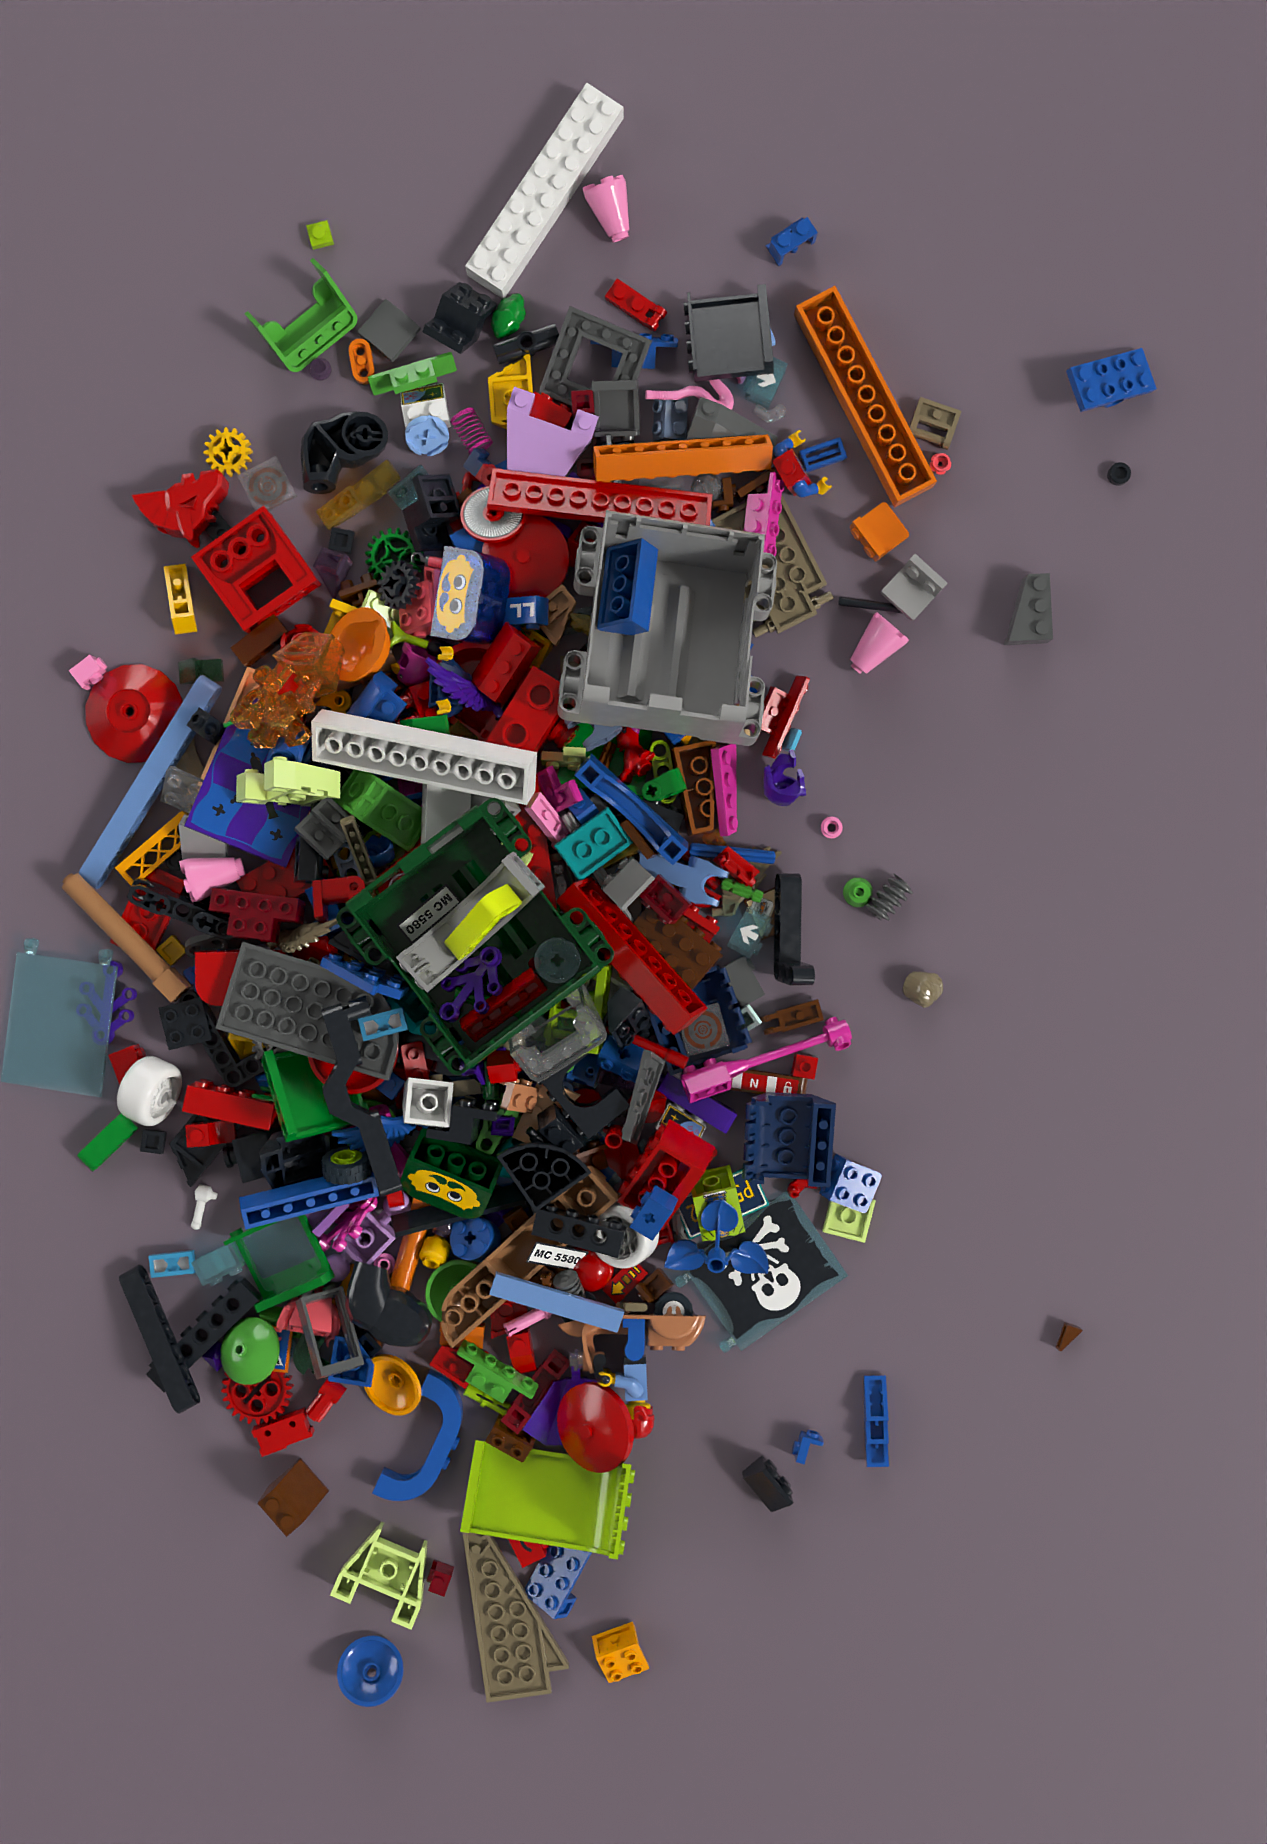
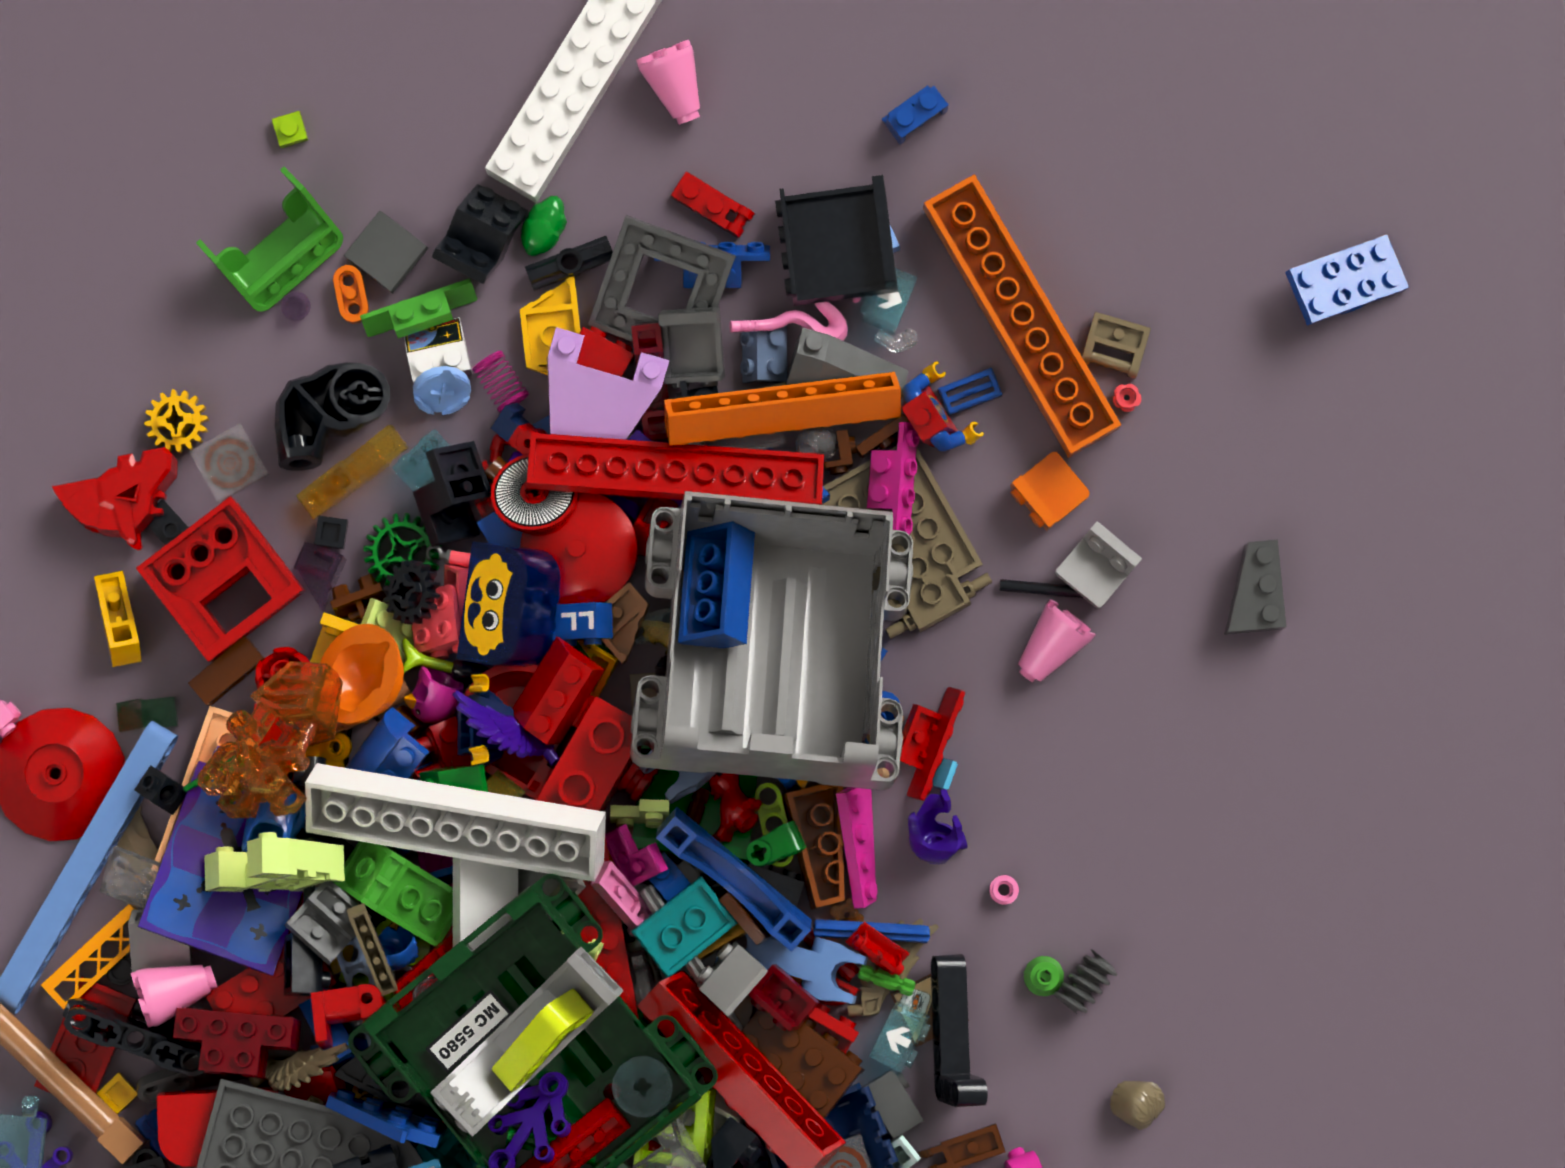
camera: 15 degrees left, 5 degrees down
(1119, 474) = (1366, 401): black tile -> none

